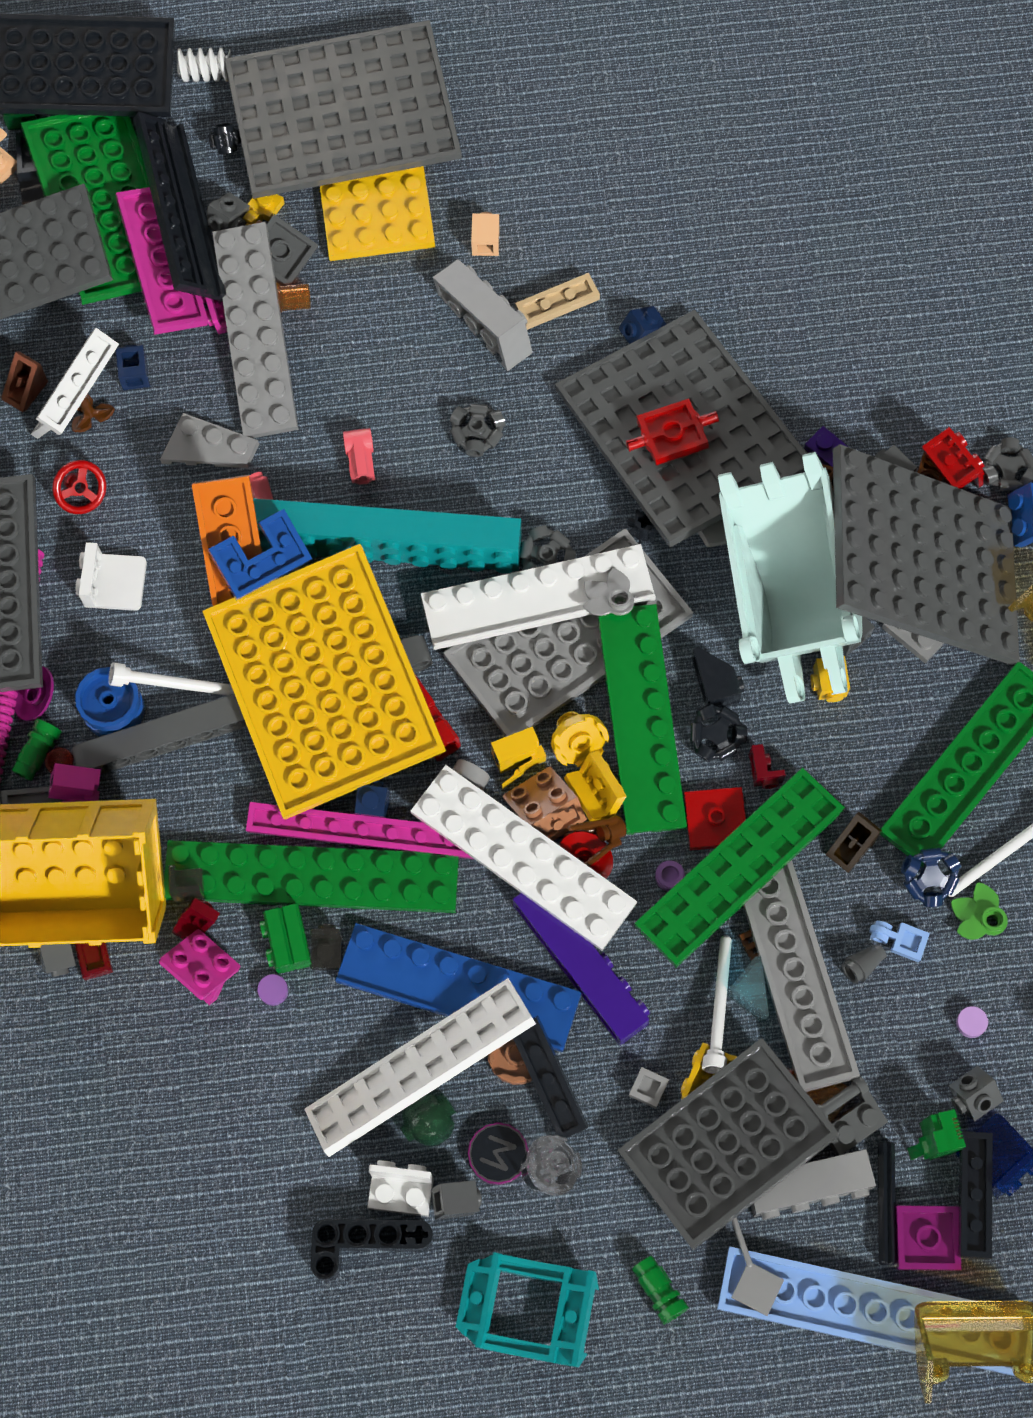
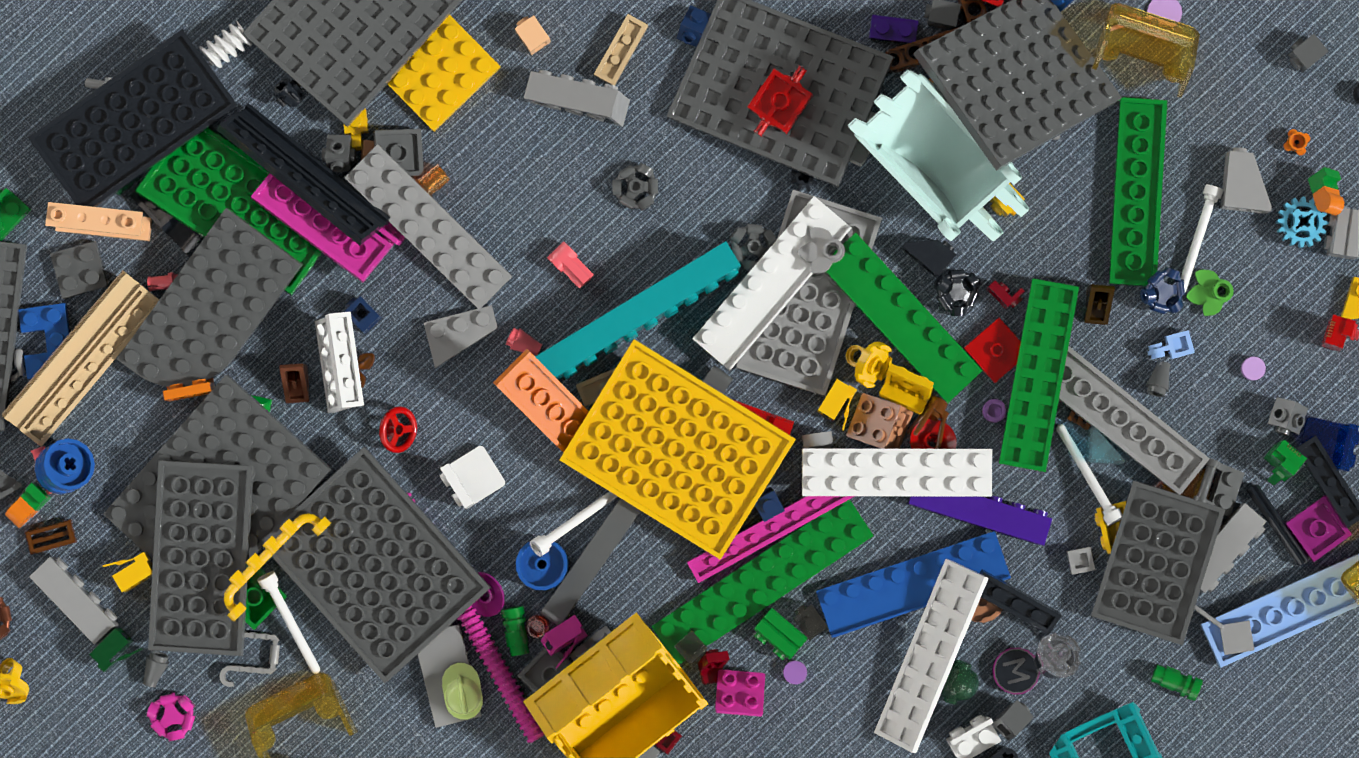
camera: 35 degrees left, 15 degrees up
(247, 575) = (575, 416): blue plate -> none

